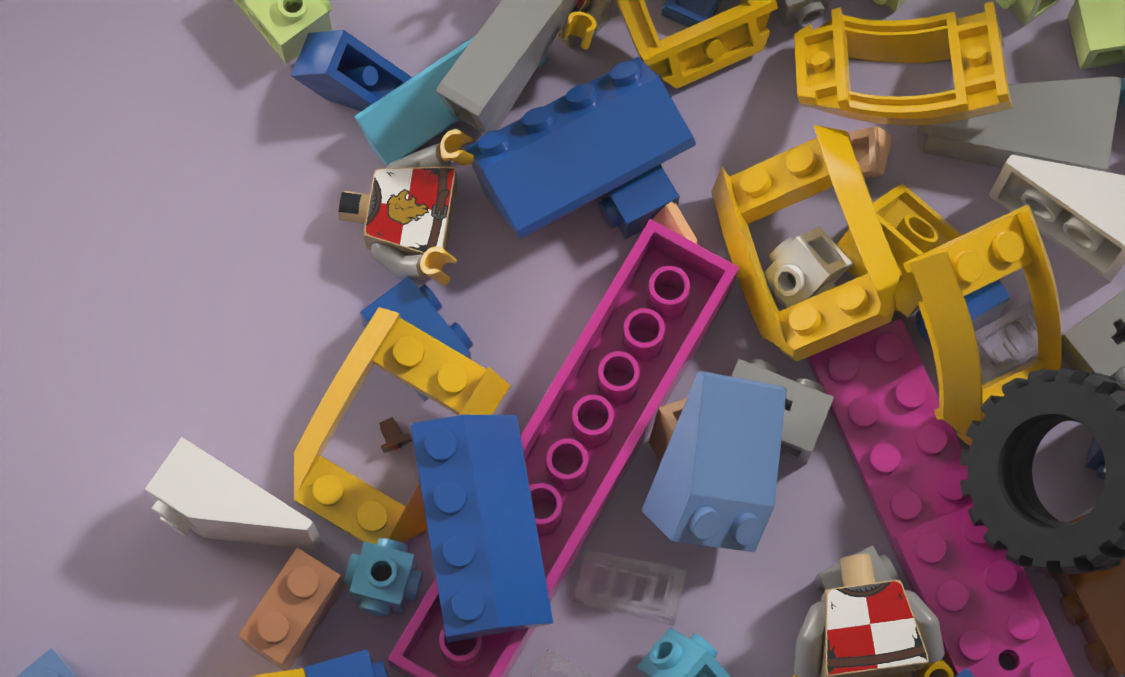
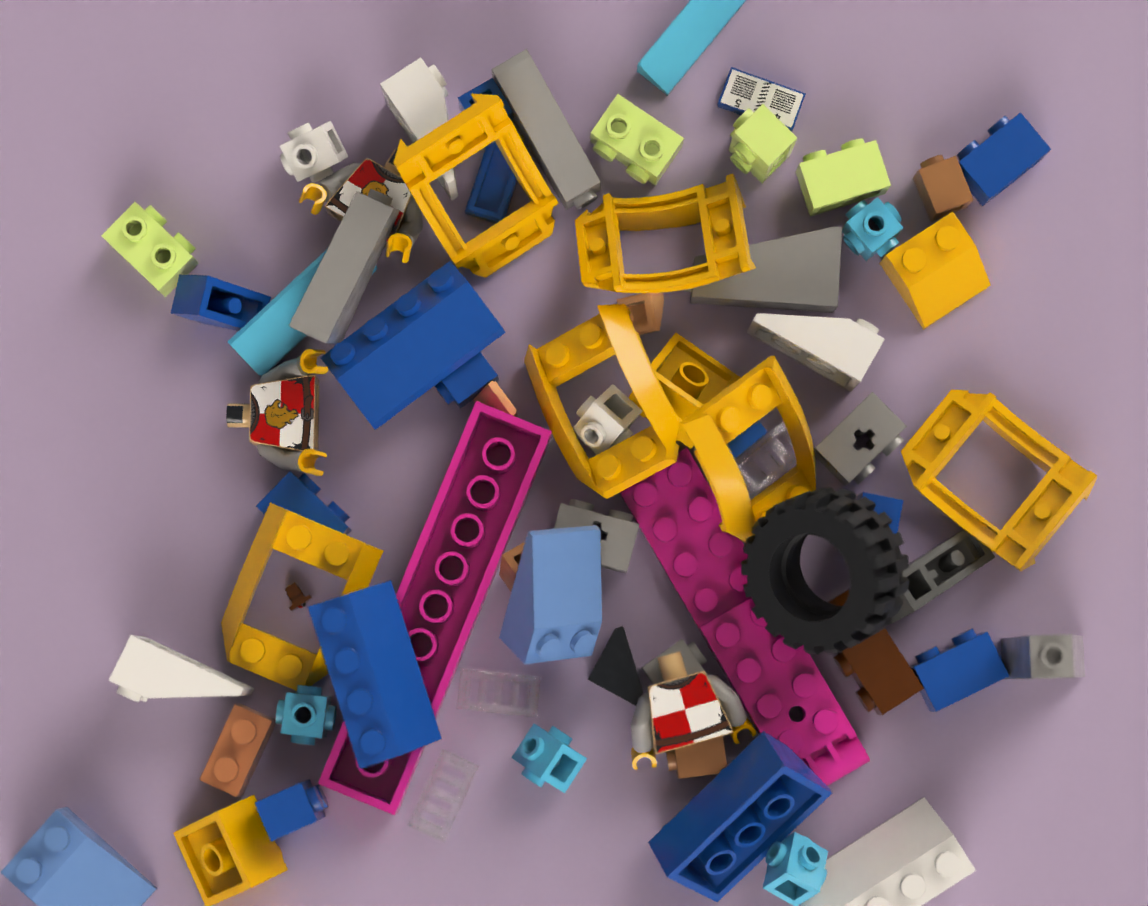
camera: 10 degrees left, 10 degrees up
(783, 576) = (616, 669): none -> black slope

